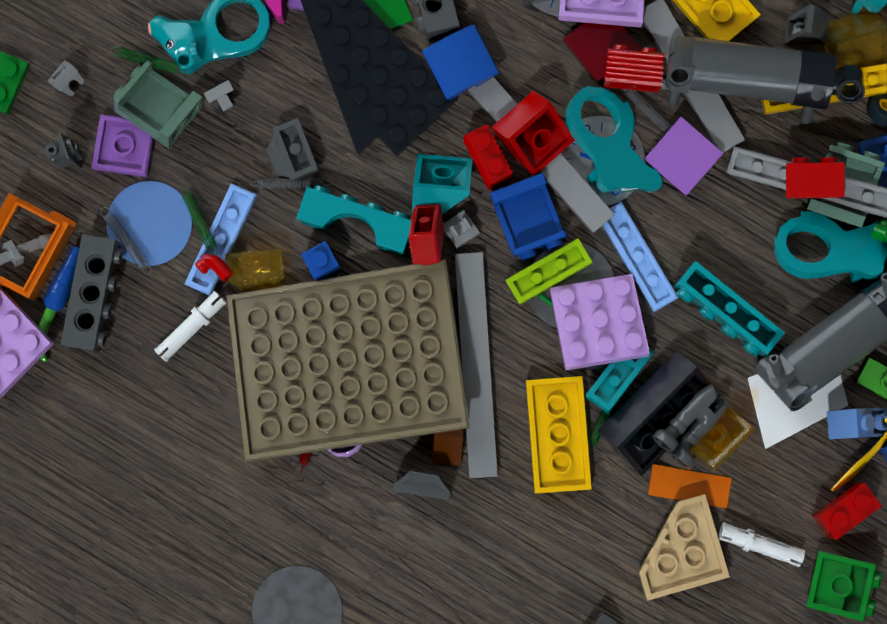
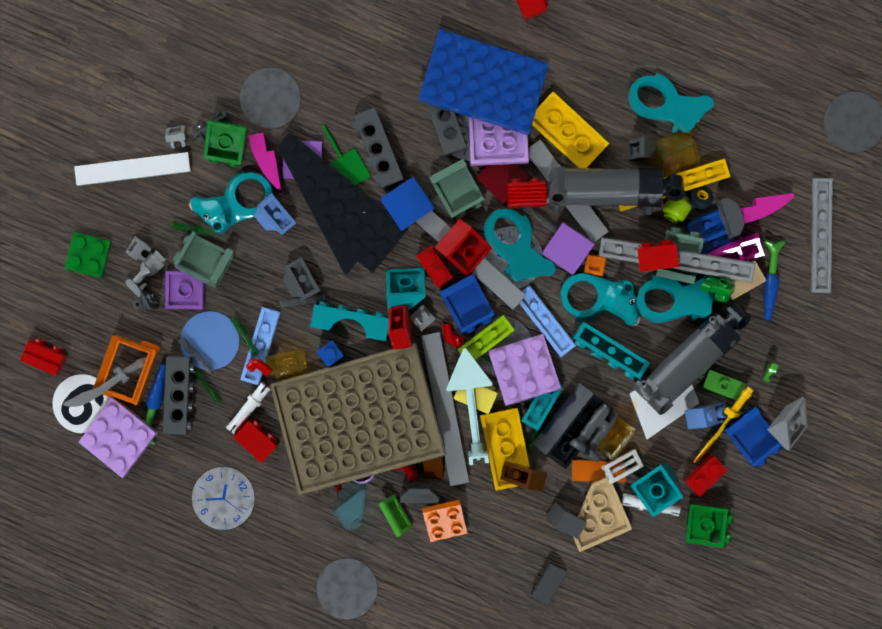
camera: 10 degrees left, 5 degrees up
(77, 107) = (149, 267): none -> light grey piece
(132, 292) = (206, 387): none -> green piece
(134, 454) = (223, 498): none -> flat silver sticker
(194, 374) = (256, 440): none -> red brick
(220, 93) = (246, 246): light grey tile -> none
(265, 55) = (273, 215): none -> medium blue slope
(321, 495) = (352, 510): none -> clear light blue slope
(383, 511) = (395, 515): none -> bright green plate
(413, 448) = (411, 472): none -> red arm
(454, 527) = (444, 520): none -> orange plate
(498, 263) = (452, 338): none -> red arm
(516, 318) = (468, 376): none -> light aqua piece
(523, 349) = (483, 397): none -> light yellow brick
(534, 52) = (457, 189): none -> sand green panel
(579, 475) = (523, 476): none -> reddish brown slope
(633, 550) = (565, 520): none -> dark grey slope
(705, 488) = (609, 472): none -> white tile
(719, 186) = (594, 265): none -> orange tile
(740, 235) = (611, 296): none -> teal animal
(776, 521) = (658, 489): none -> teal slope
(847, 120) = (677, 210): none -> lime head

